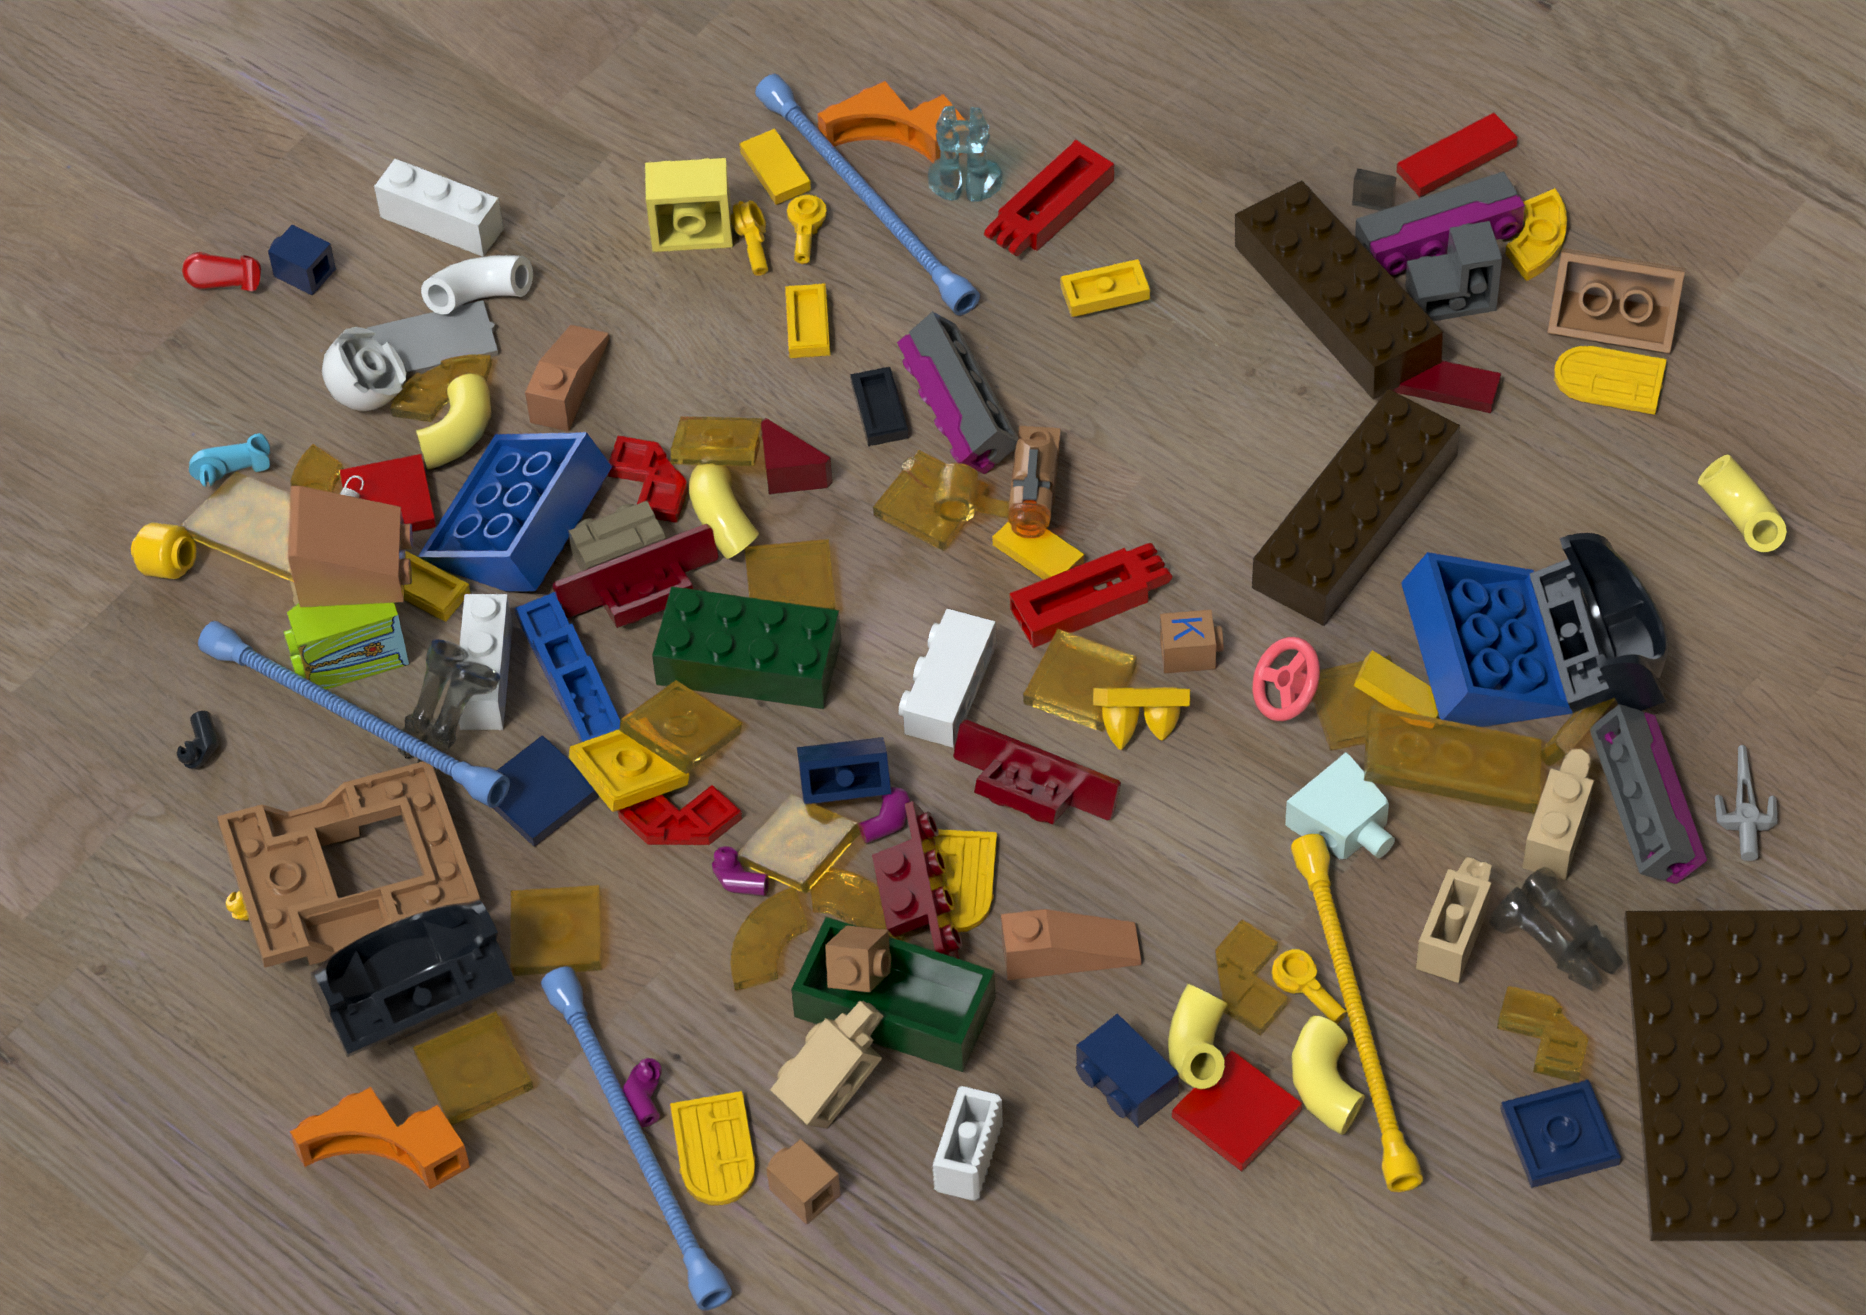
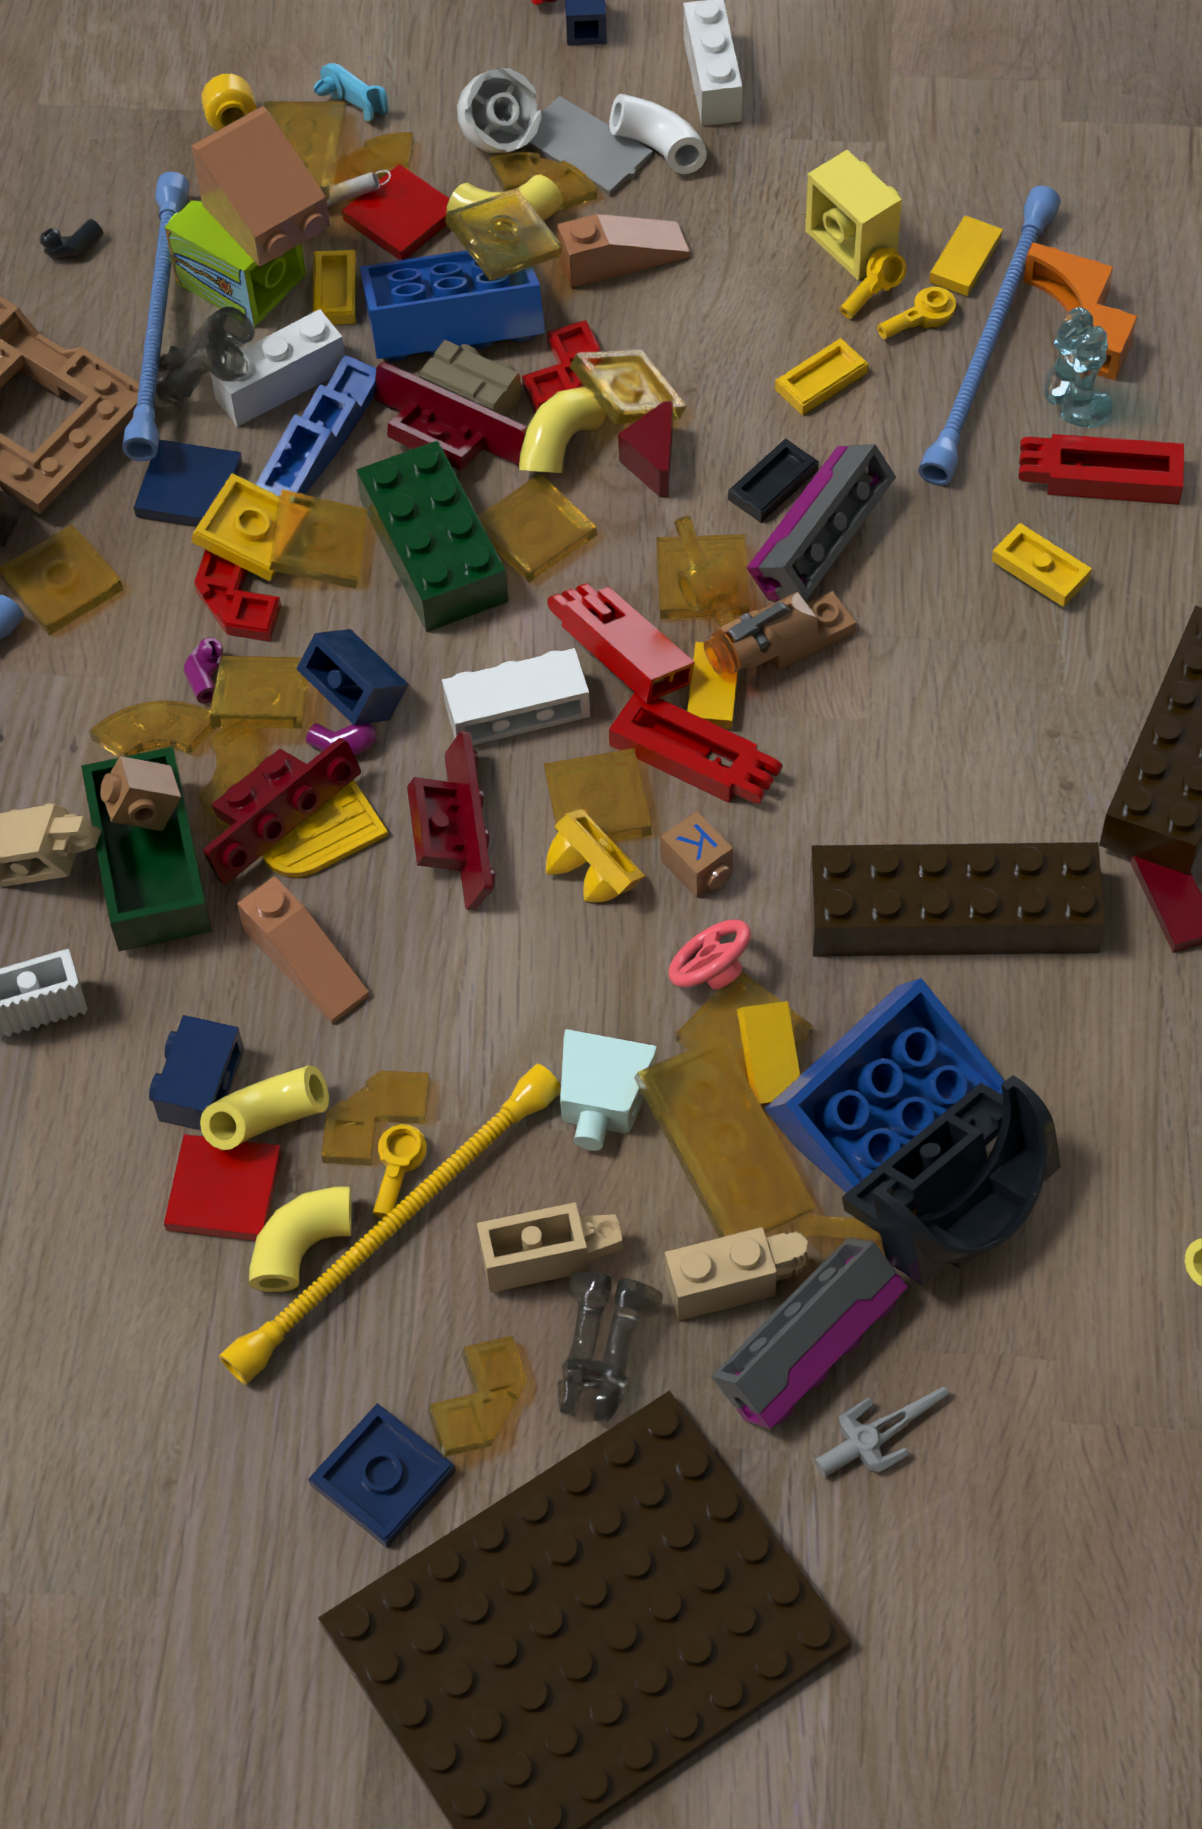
camera: 55 degrees right, 5 degrees up
(505, 430) = (503, 234): none -> clear yellow tile
(954, 578) = (623, 640): none -> hinge

